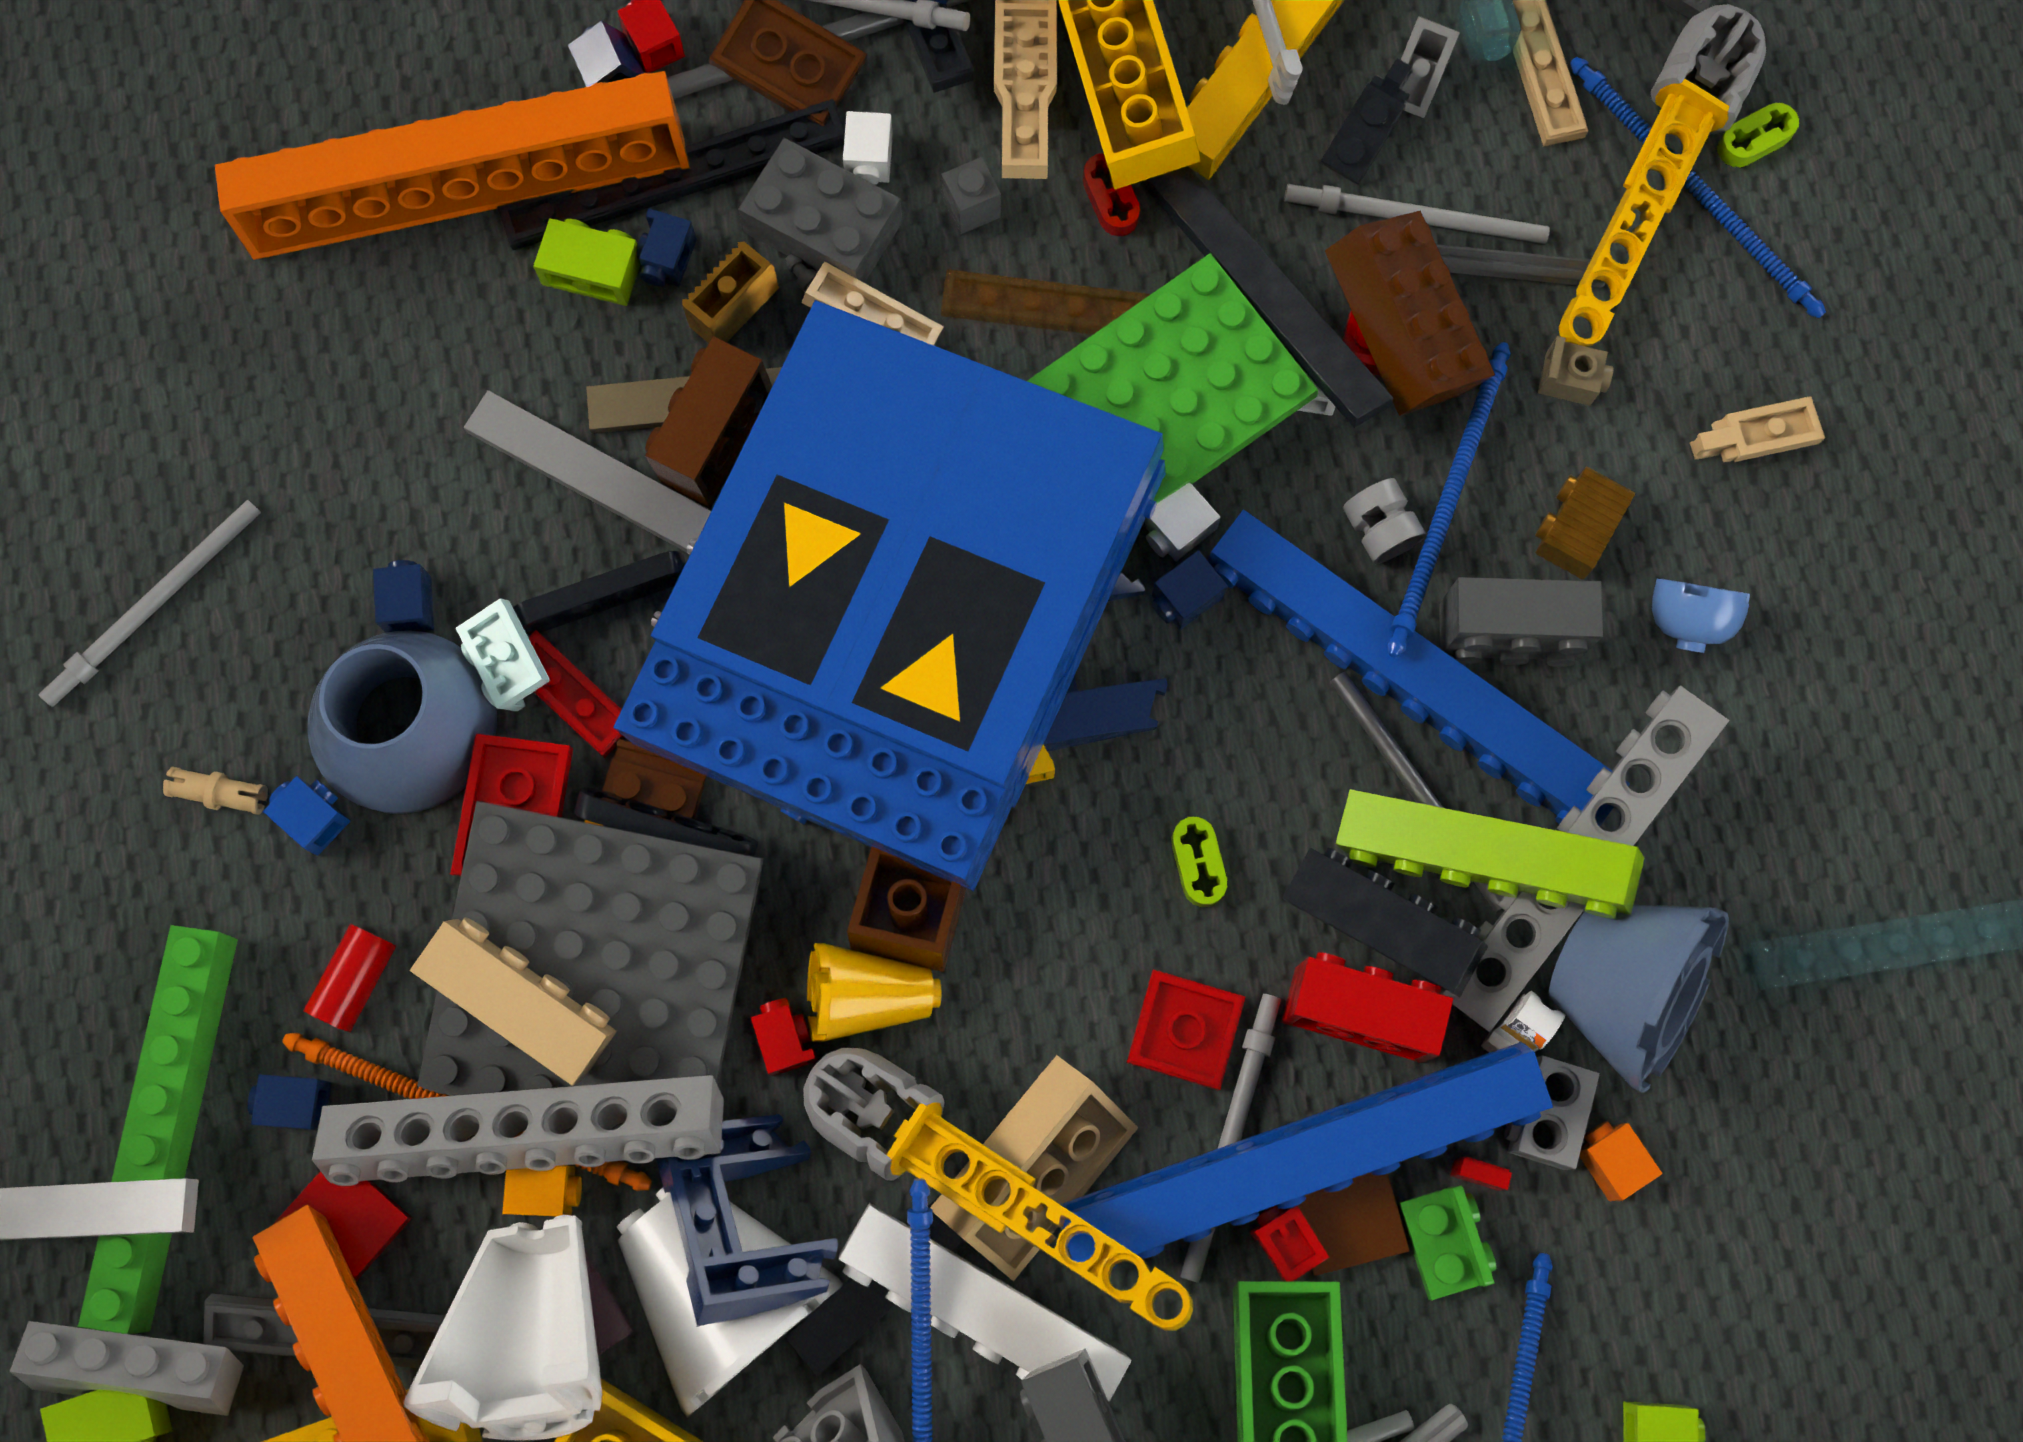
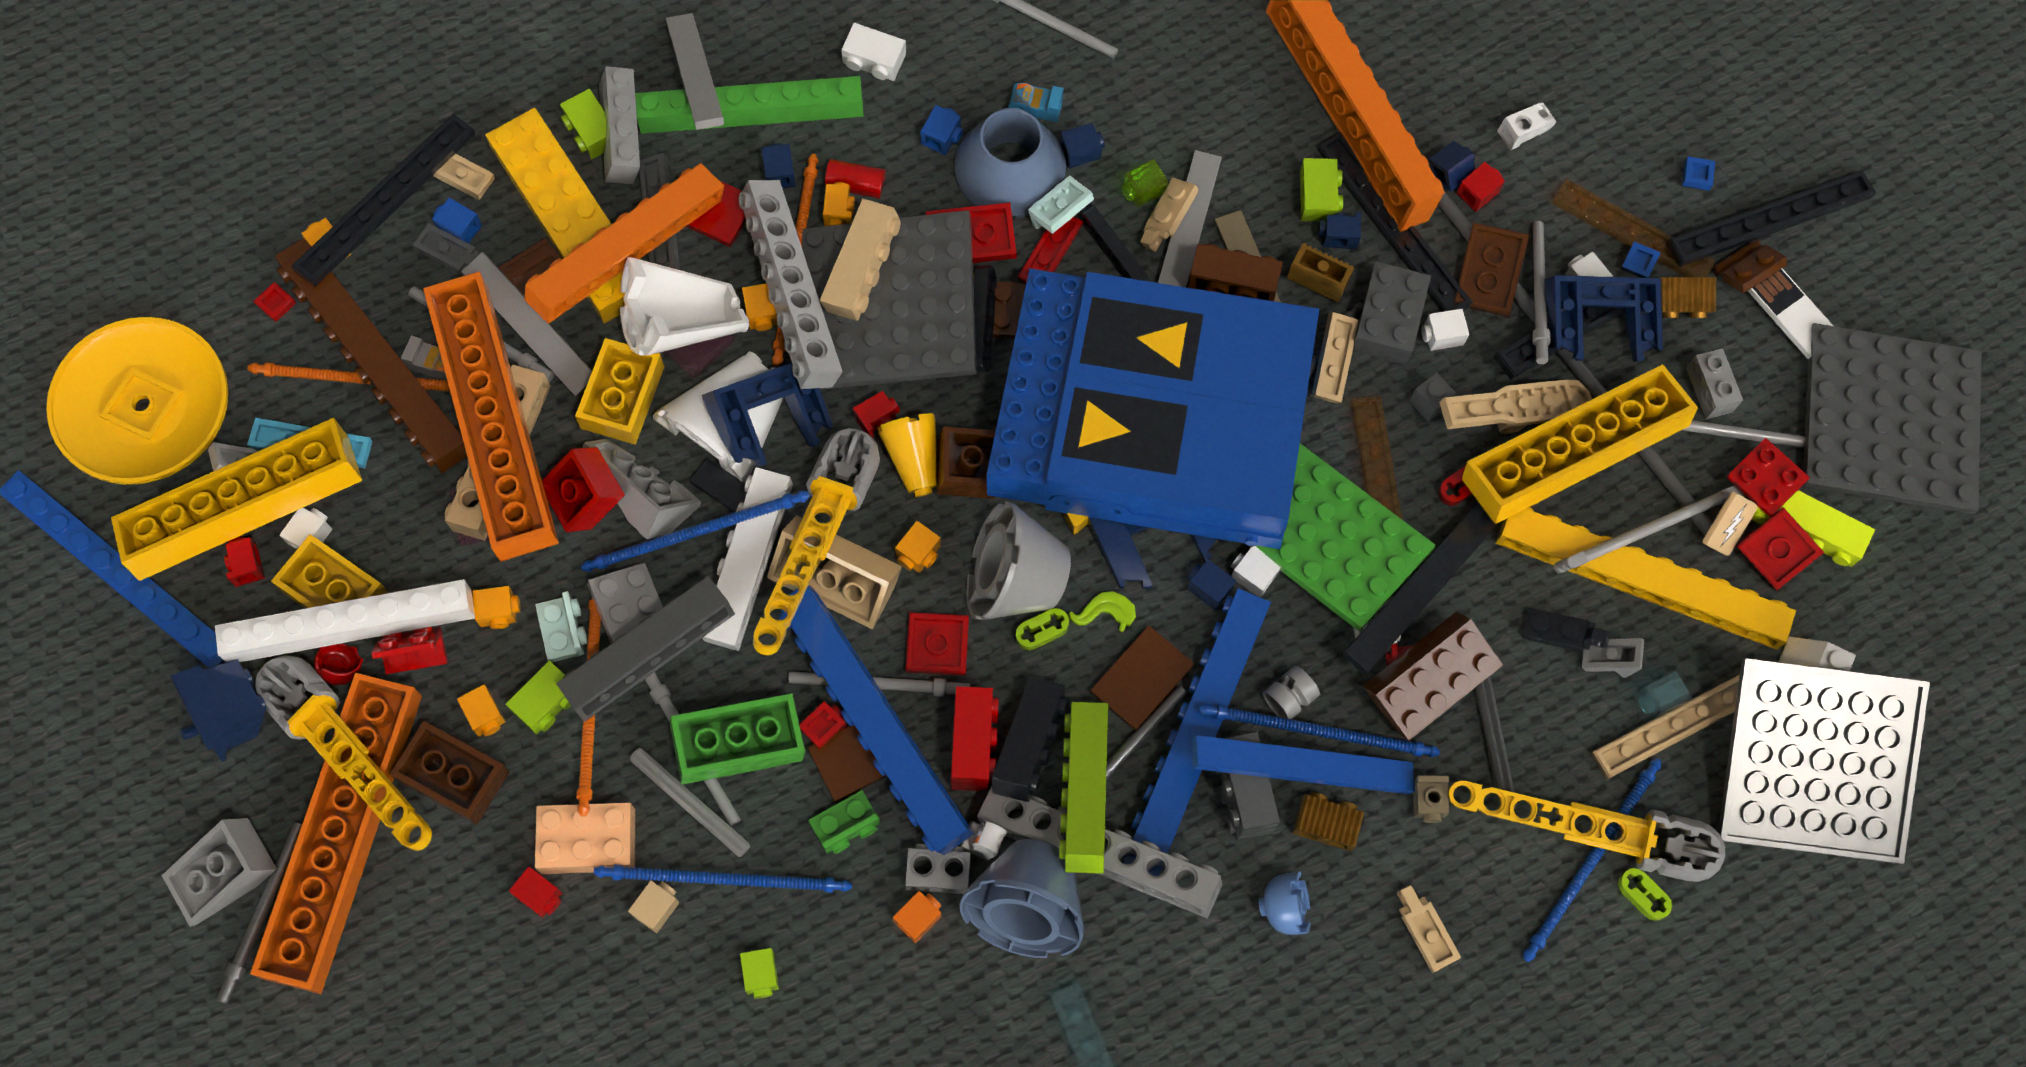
camera: 75 degrees right, 5 degrees down
(127, 894) = (873, 52): none -> white brick
(215, 790) = (943, 80): tan pin -> none
(302, 649) = (1037, 101): none -> dark azure leg
(393, 1016) = (838, 204): none -> light orange brick
(500, 517) = (1144, 183): none -> clear neon green brick
(561, 494) = (1168, 213): none -> tan hinge
(1028, 1023) = (918, 548): none -> light orange brick
(1108, 878) = (1016, 566): none -> light grey cone
(1177, 748) = (1110, 602): none -> lime piece
(1308, 731) = (1142, 678): none -> reddish brown tile
(1331, 199) = (1504, 621): light grey bar -> none
(1481, 1173) = (890, 833): red tile -> none
(1515, 534) = (1302, 765): none -> blue tile

